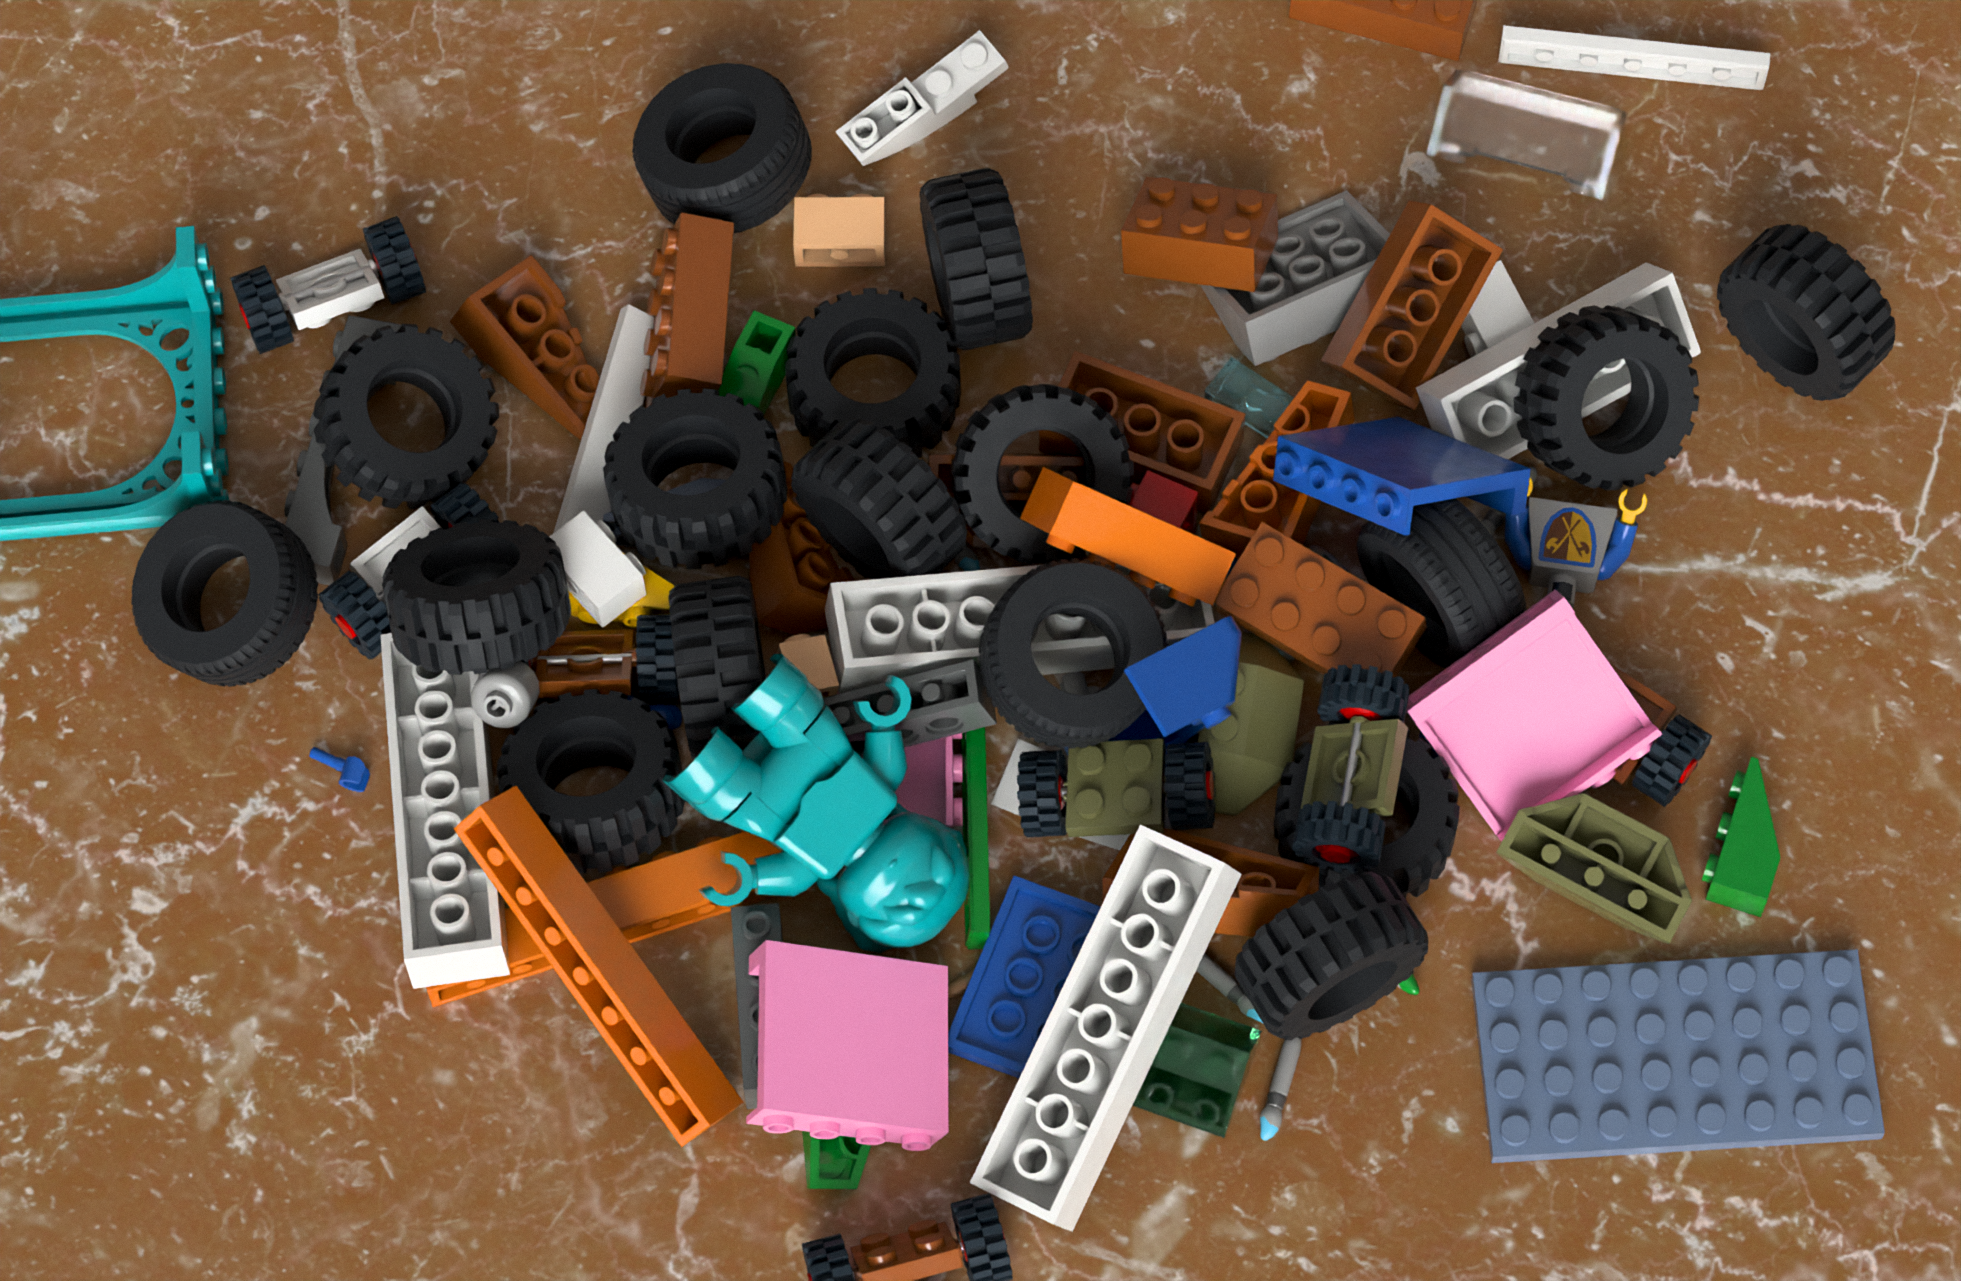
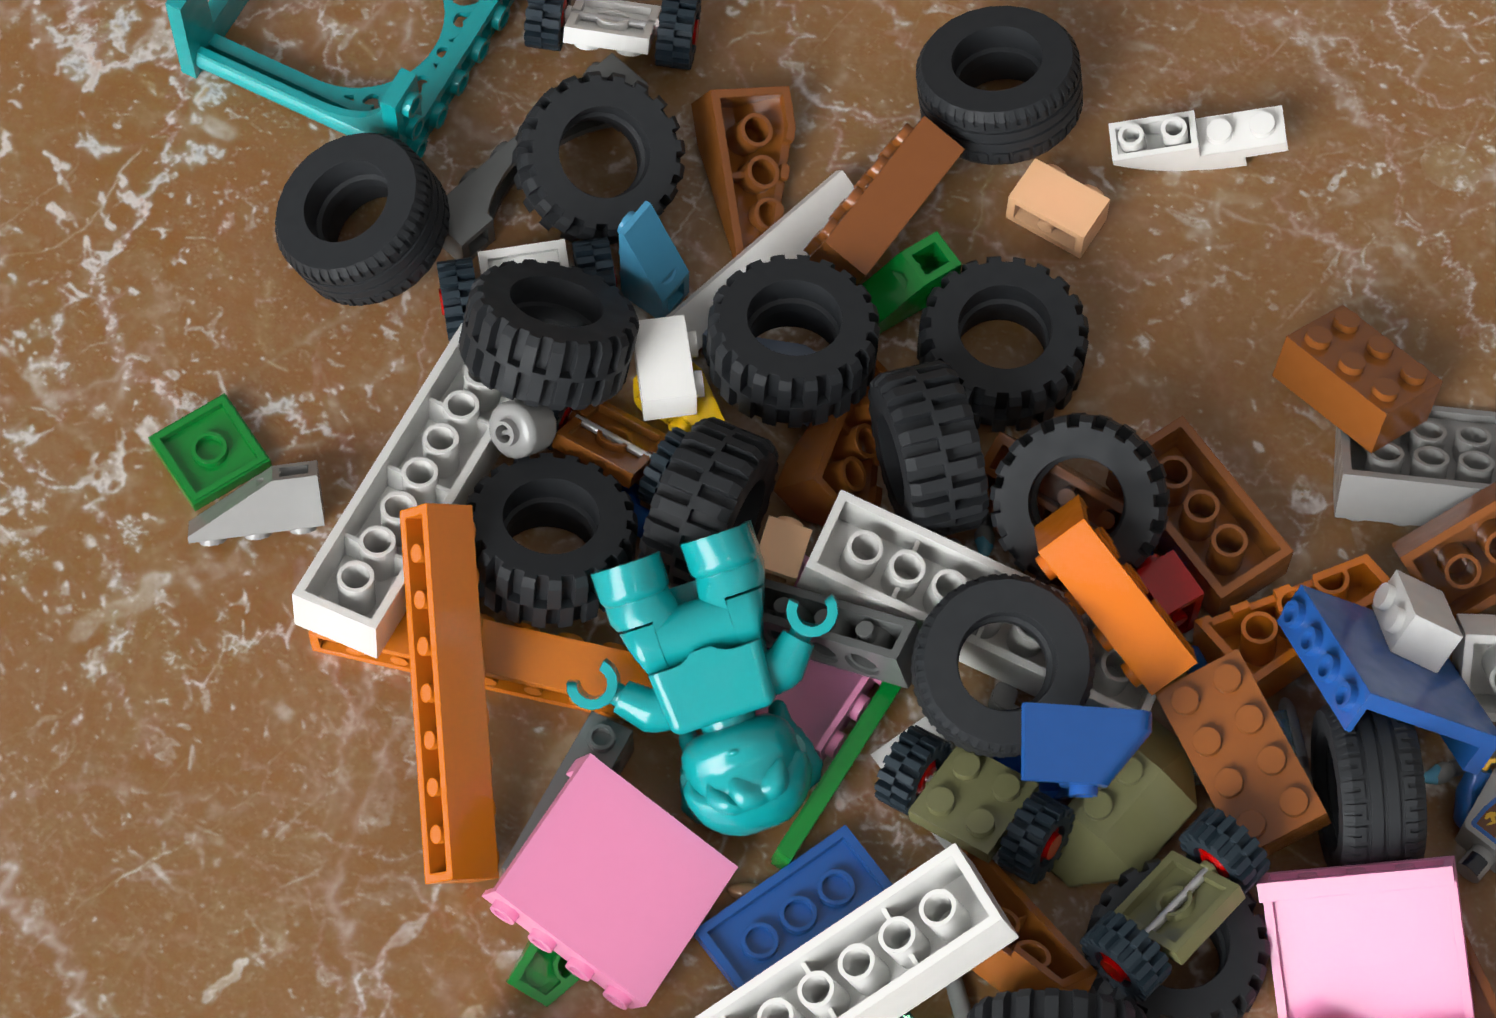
camera: 30 degrees right, 0 degrees up
(216, 886) = (210, 452): none -> green tile
(309, 897) = (272, 502): none -> light grey slope
(353, 771) = (375, 424): blue hand -> none
(516, 482) = (650, 264): none -> dark azure slope
(976, 258) = (1146, 290): black tyre -> none
(1249, 393) = (1312, 537): clear light blue plate -> none
(1391, 412) = (1416, 621): none -> white brick

